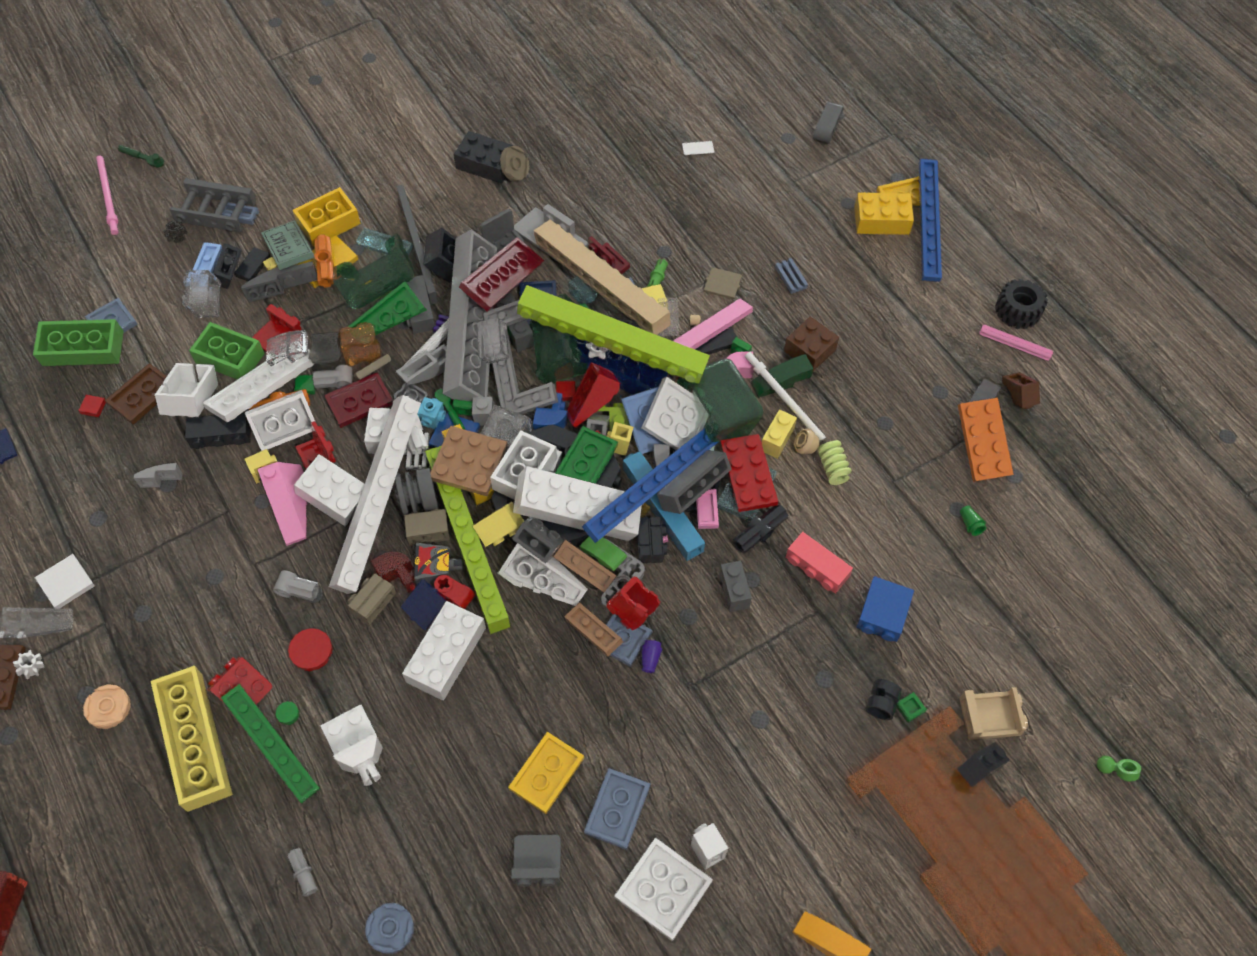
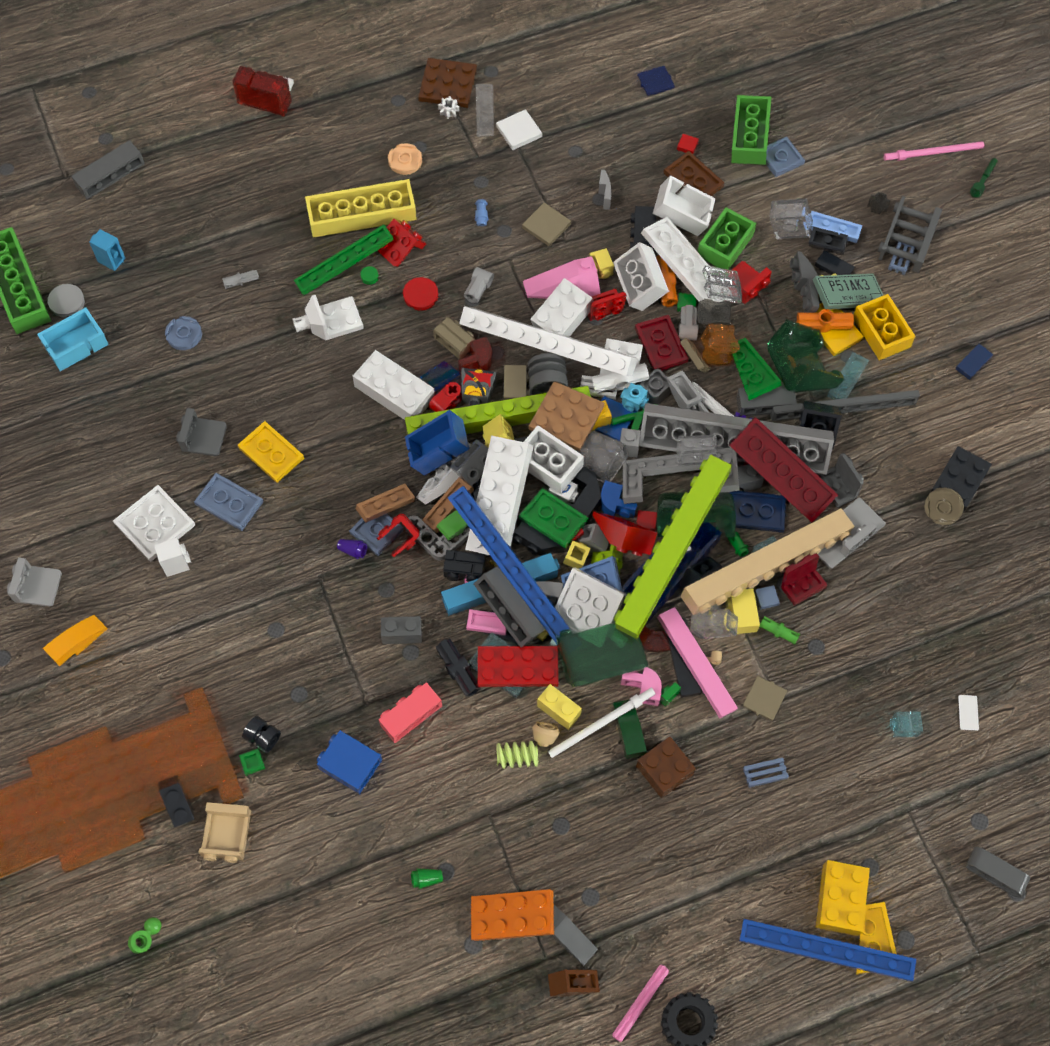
camera: 100 degrees right, 5 degrees up
(191, 601) = (481, 214): none -> medium blue arm
(206, 531) = (546, 224): none -> dark tan tile
(355, 155) = (974, 361): none -> dark blue tile
(517, 582) = (436, 442): none -> blue piece
(722, 181) = (906, 724): none -> clear light blue brick

